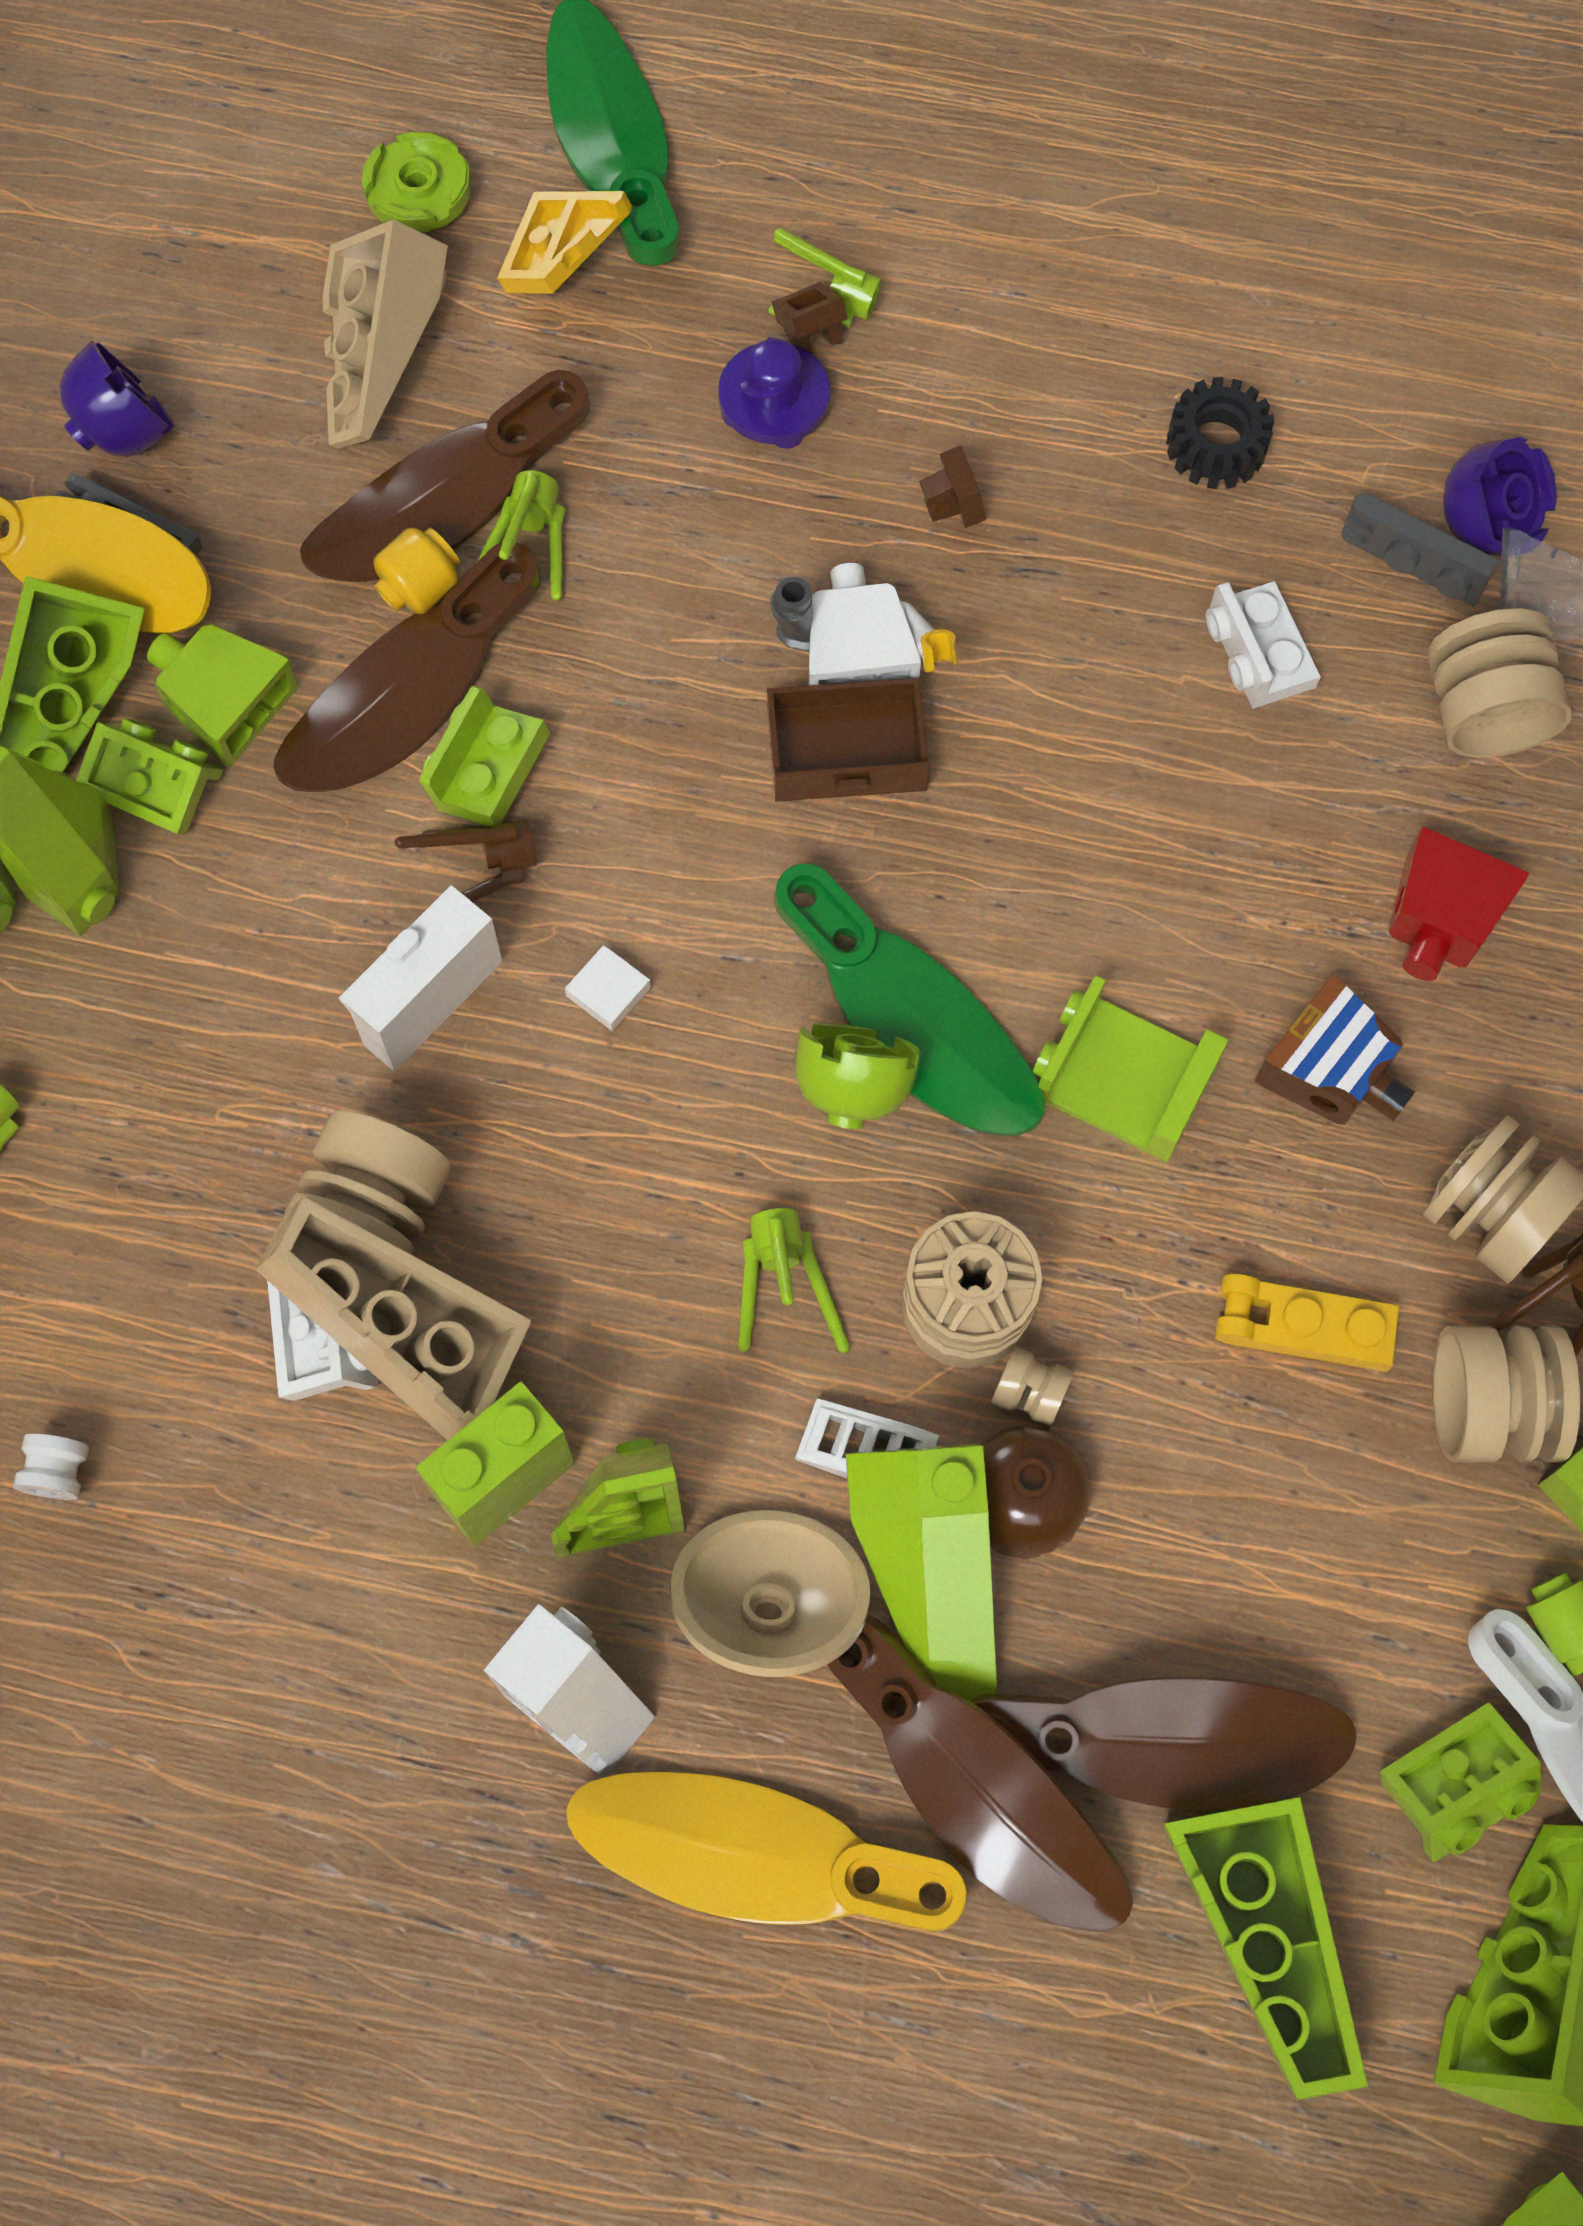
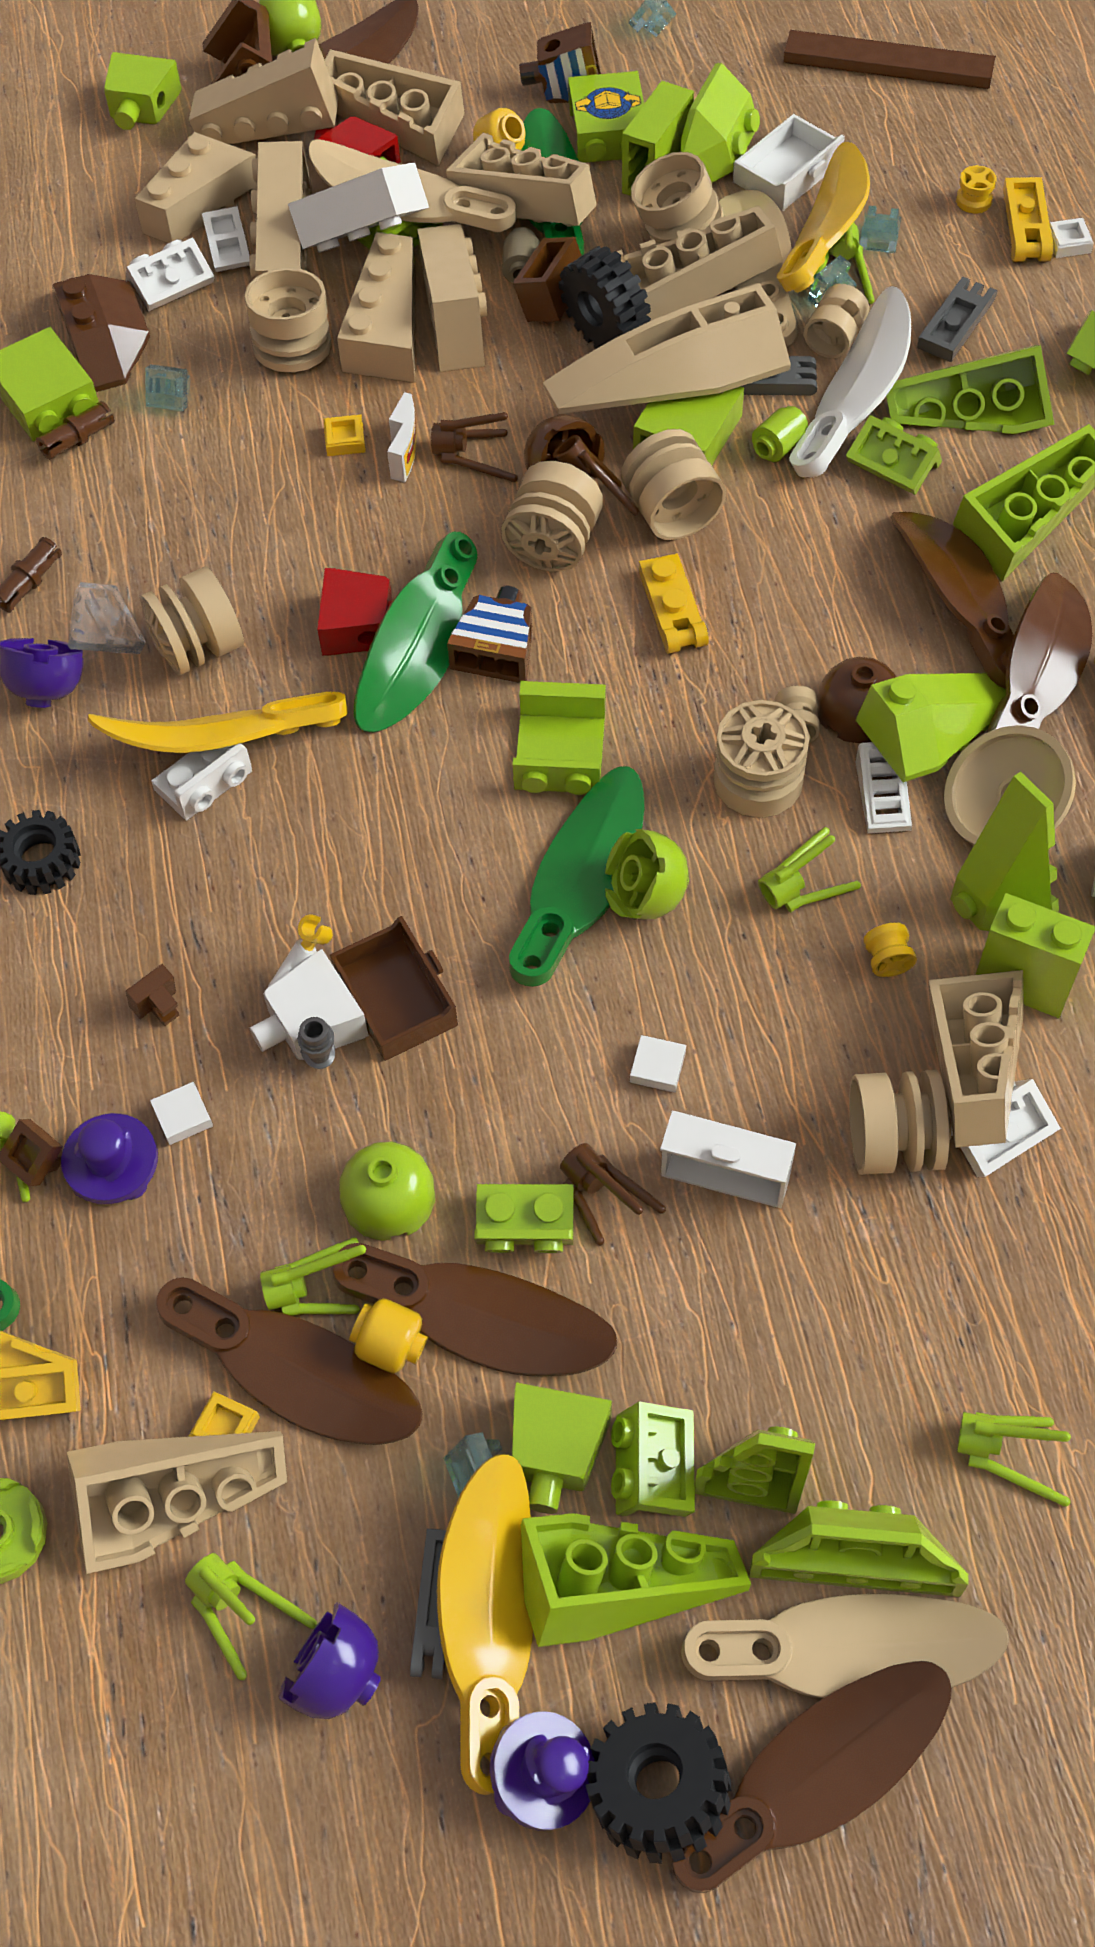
camera: 110 degrees left, 10 degrees down
(246, 604) = (468, 1457): none -> clear light blue tile
(254, 343) = (217, 1587): none -> lime plant
(418, 408) = (224, 1417): none -> yellow tile
(594, 640) = (386, 1190): none -> lime cylinder
(617, 1321) = (890, 949): none -> yellow wheel
(797, 478) = (181, 1113): none -> white tile
(1318, 664) = (227, 729): none -> yellow plant
(1352, 928) = (413, 636): none -> green plant
(1418, 549) = (95, 697): dark grey hinge -> none

